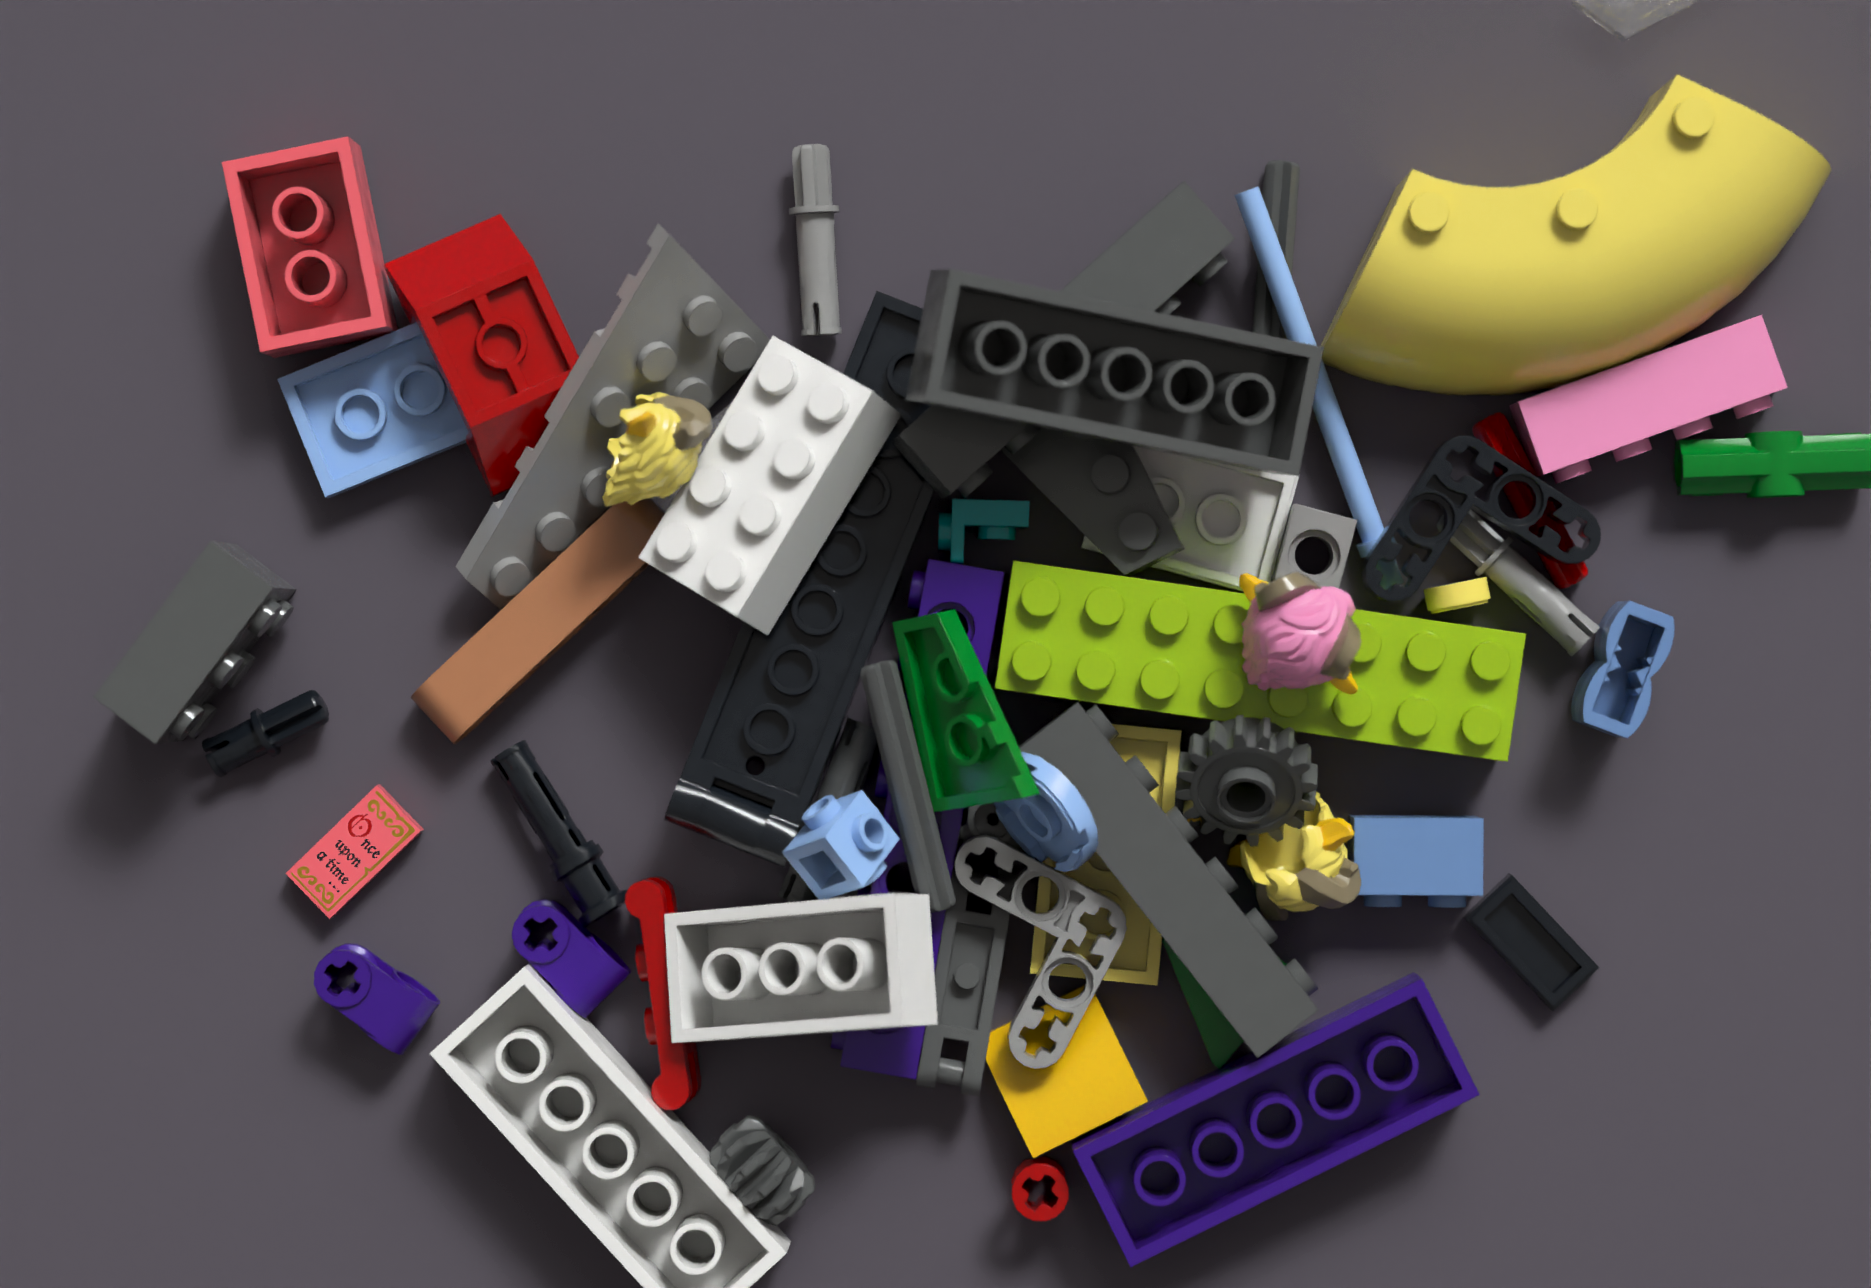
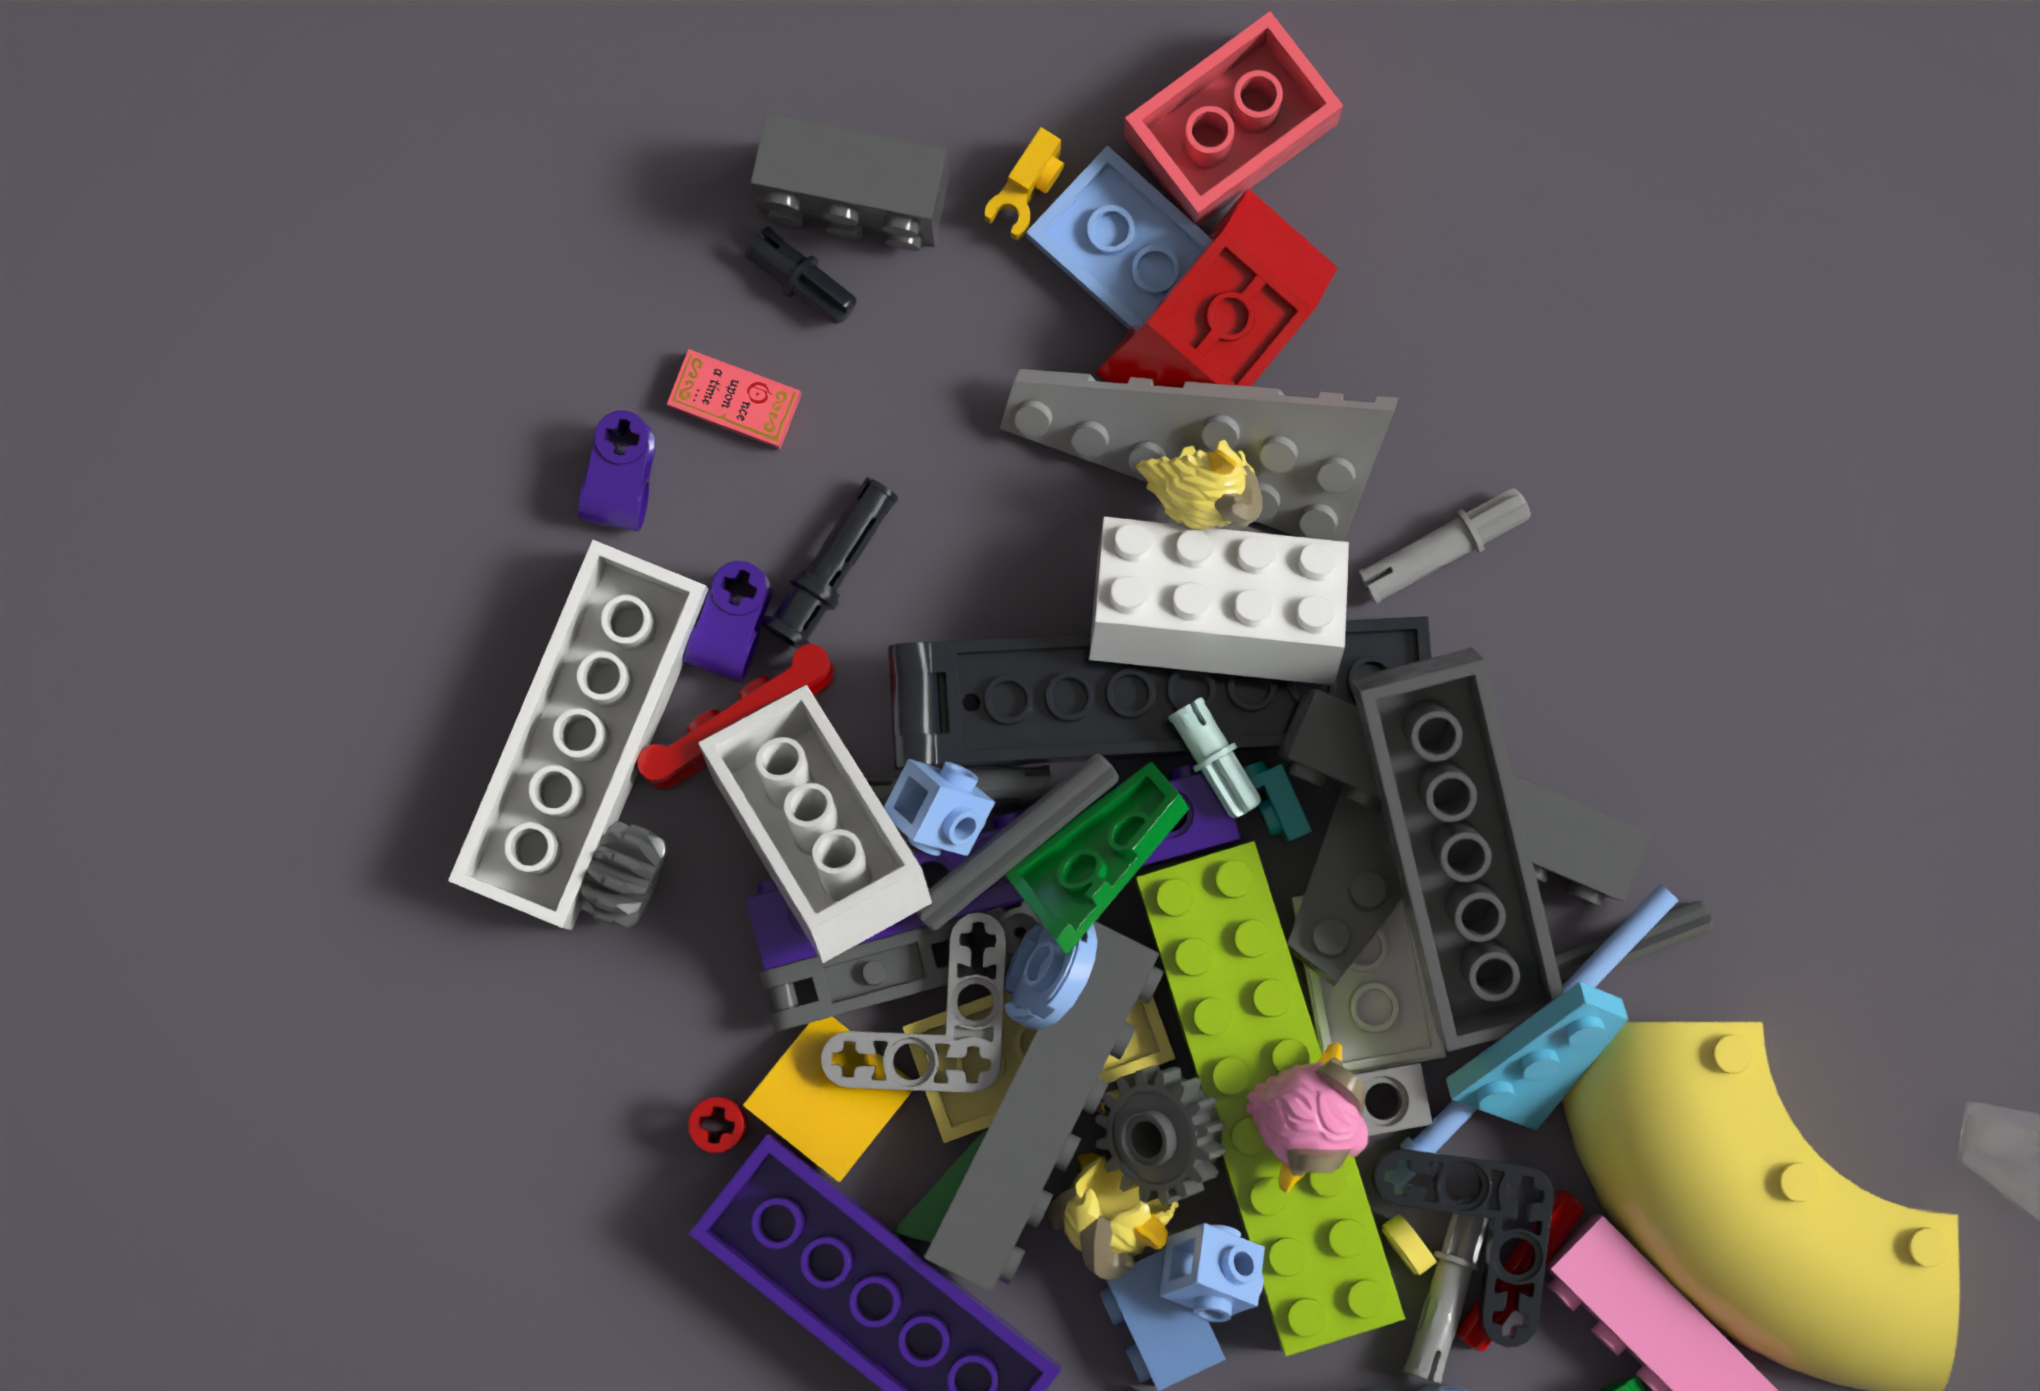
camera: 70 degrees right, 5 degrees down
(269, 460) = (1035, 170): none -> yellow plate
(539, 620) = (1007, 461): nougat beam -> none
(918, 560) = (1215, 758): none -> light aqua axle
(1345, 389) = (1541, 1058): none -> medium azure wing
(1398, 793) = (1212, 1271): none -> light blue brick

